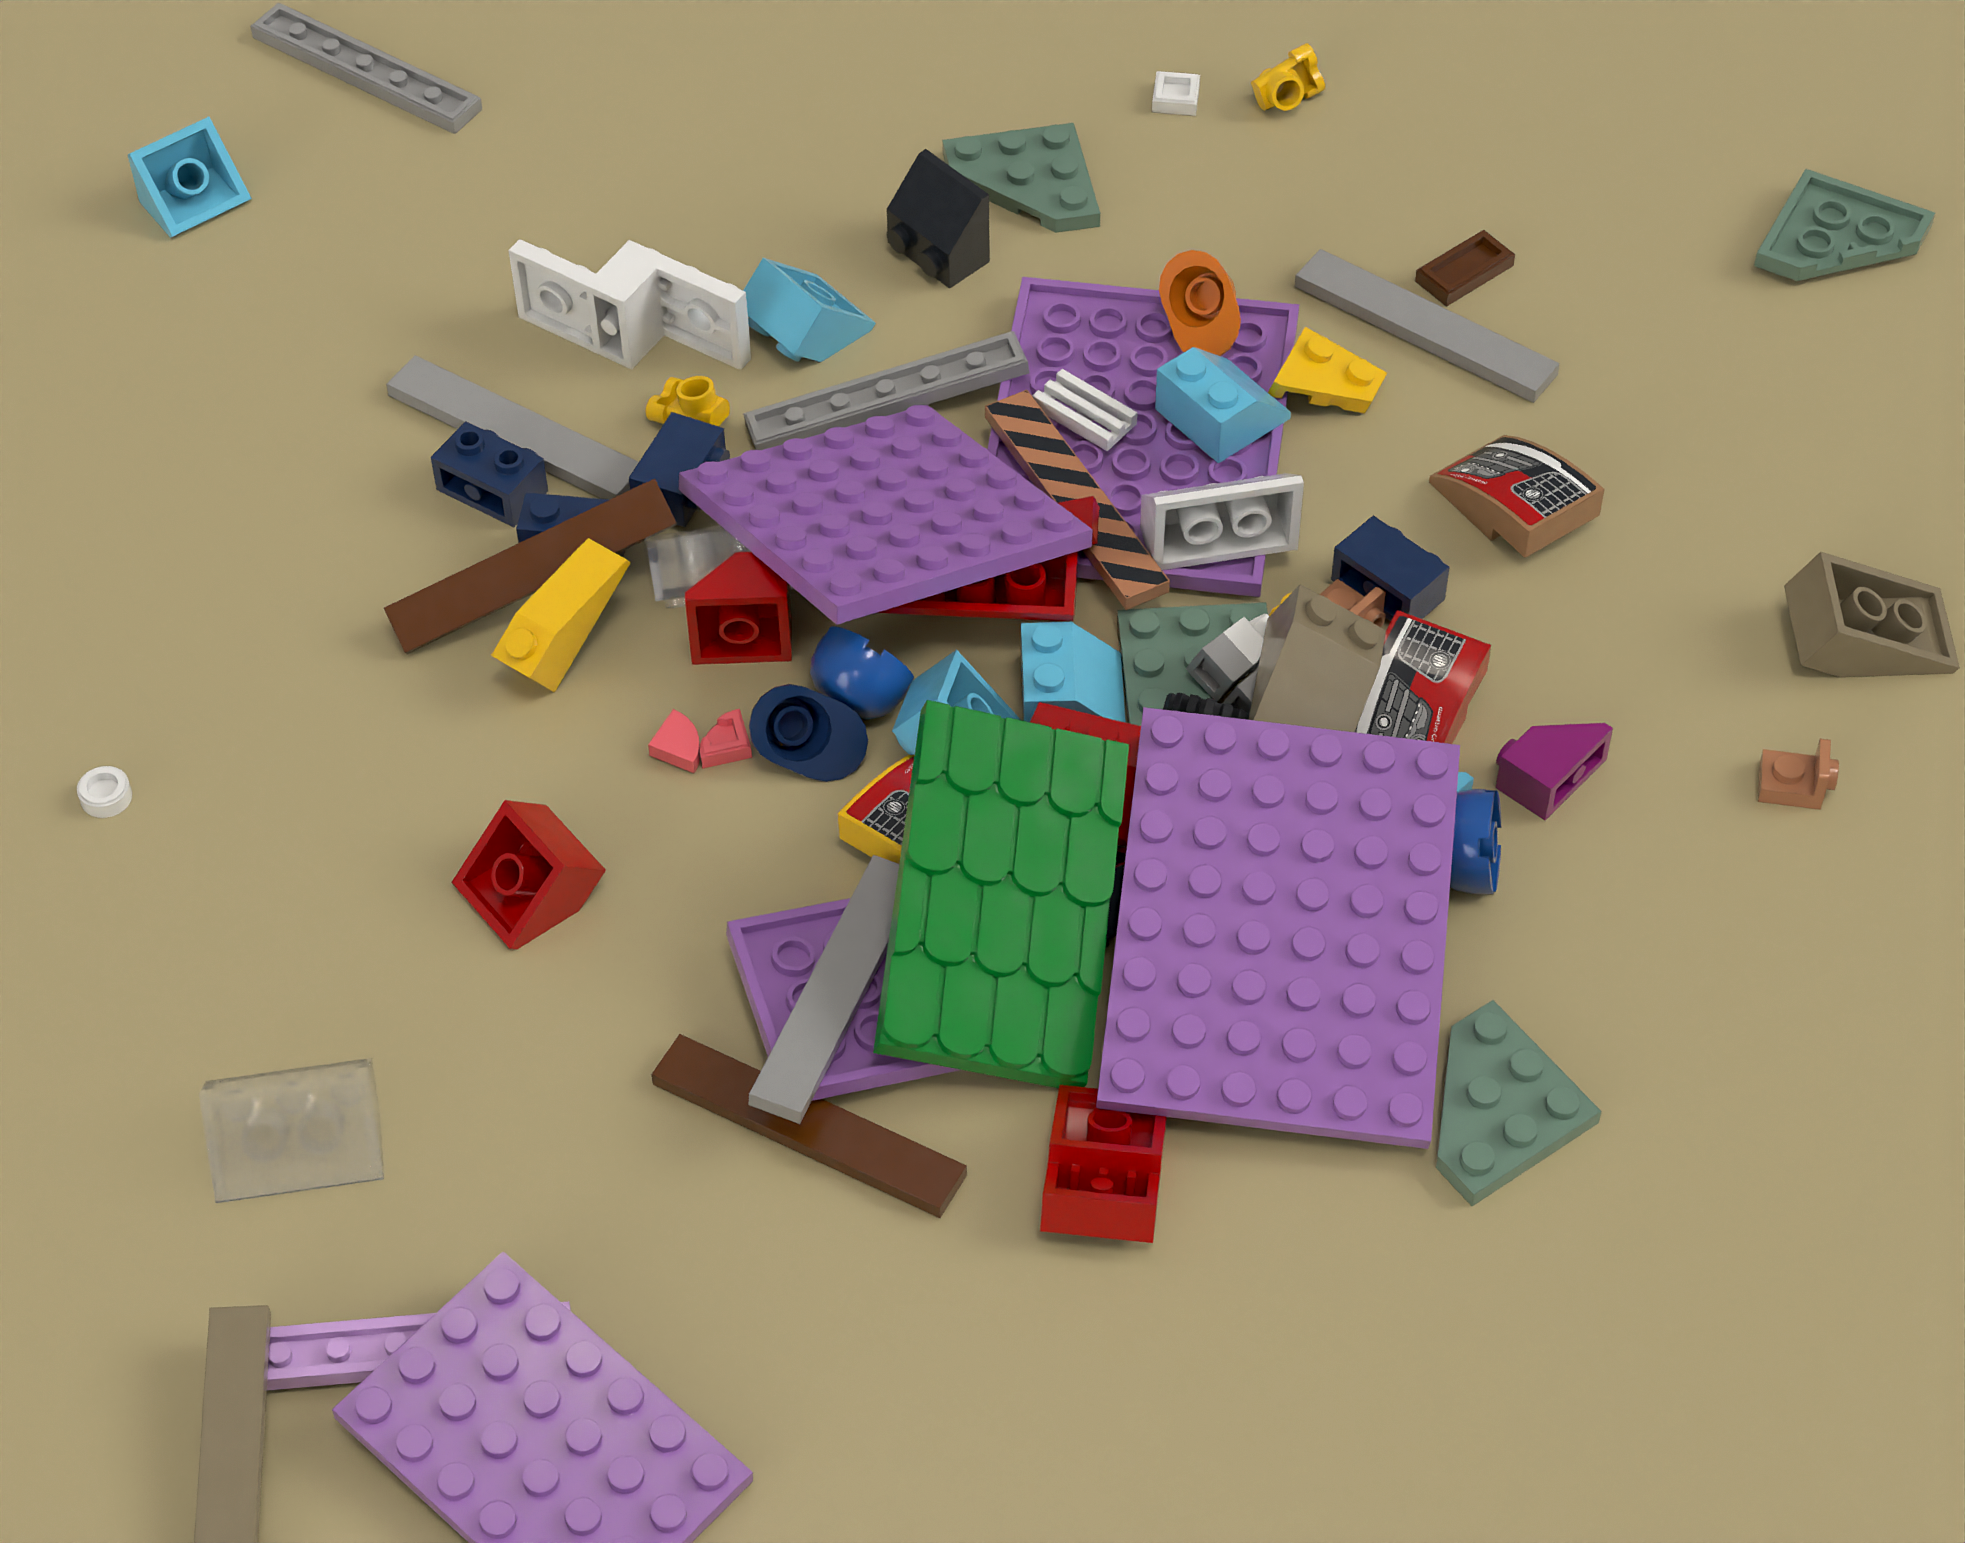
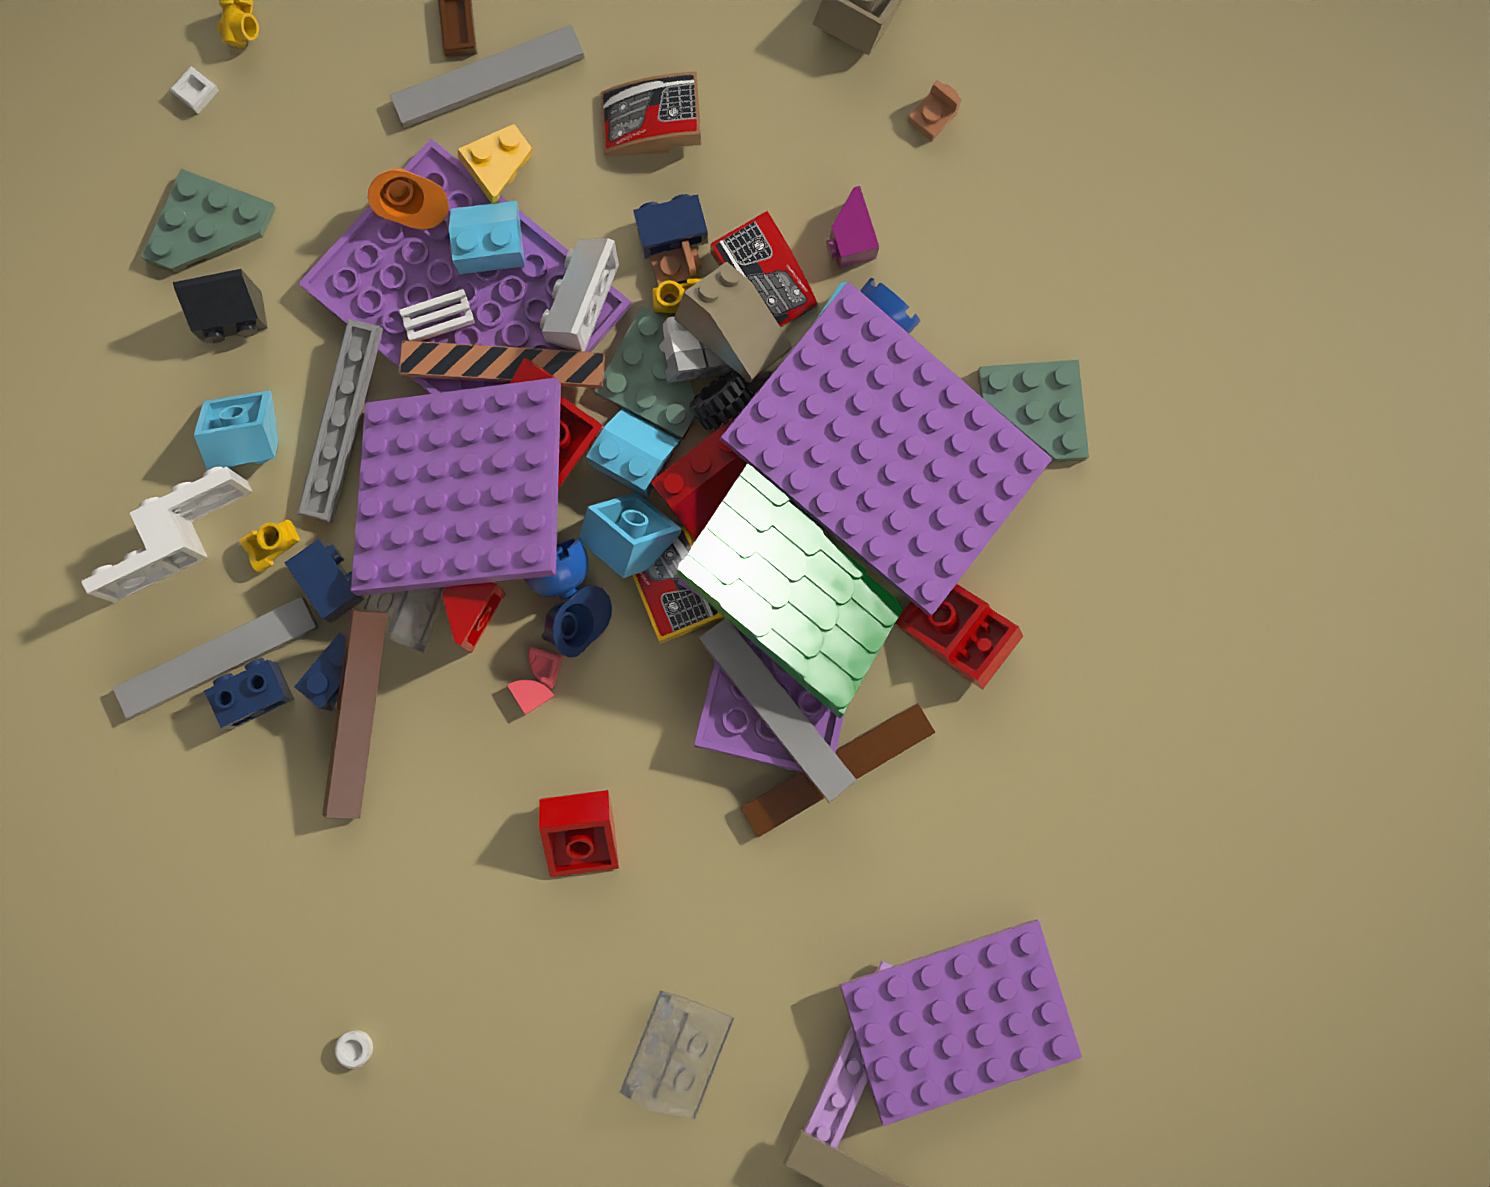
camera: 65 degrees left, 30 degrees up
(561, 615) = (405, 716): yellow slope -> none

